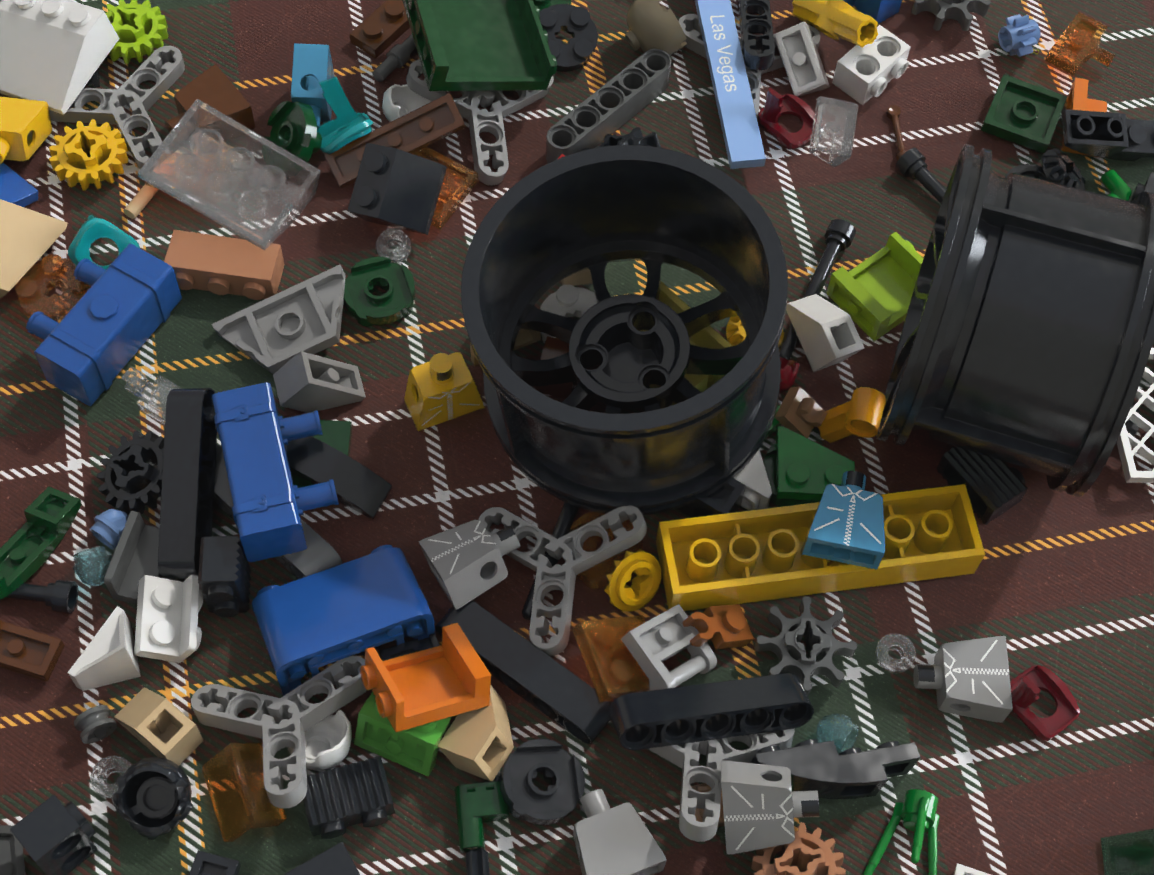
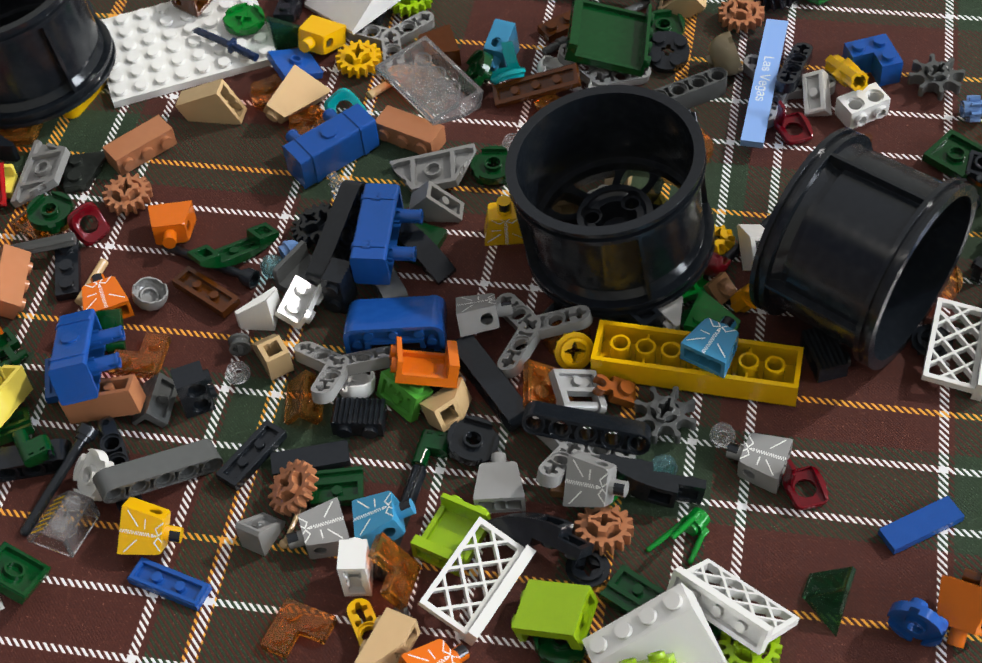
camera: 30 degrees right, 10 degrees down
(153, 796) = (253, 384): black hair -> none
(396, 189) = (519, 105): black slope -> none
(833, 130) = (816, 133): clear slope -> none

